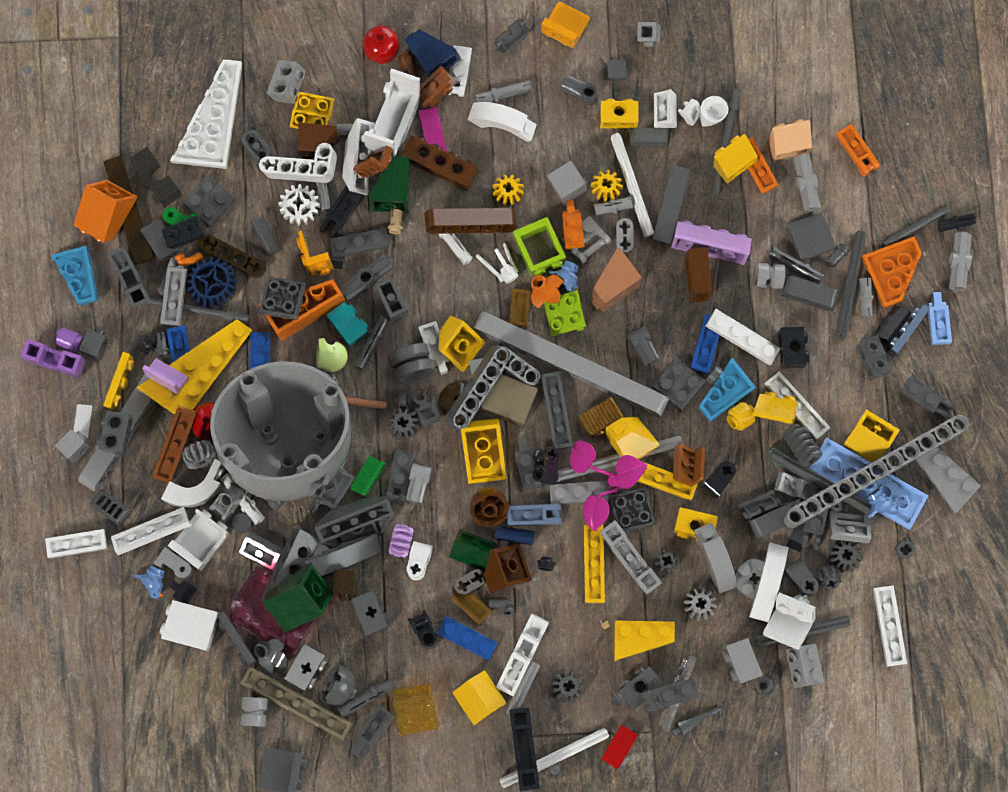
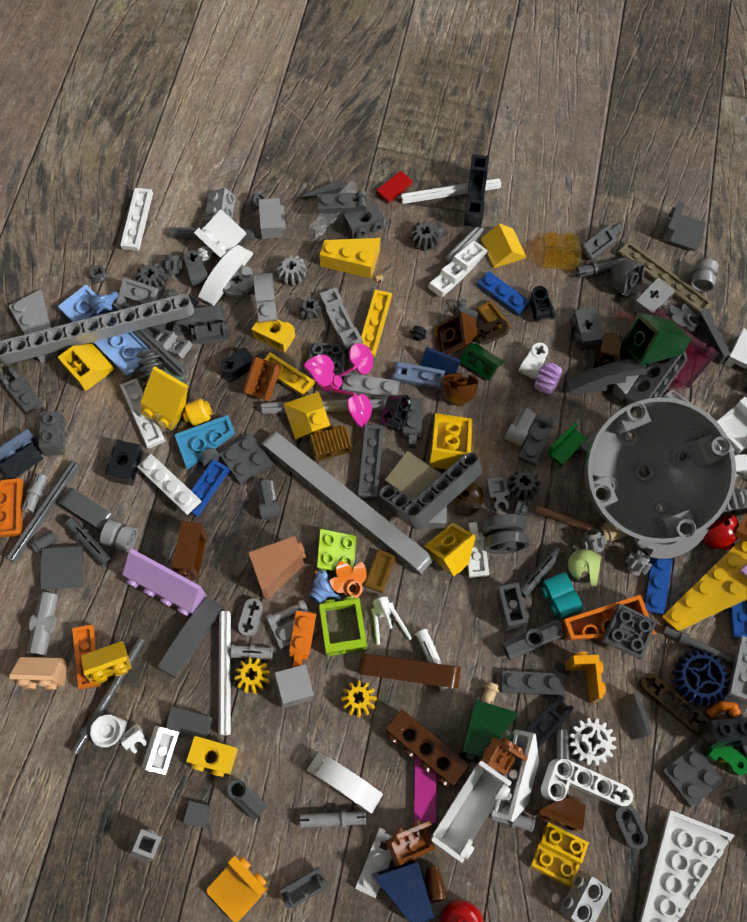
camera: 165 degrees left, 10 degrees down
(354, 521) = (590, 407): dark grey wedge -> none

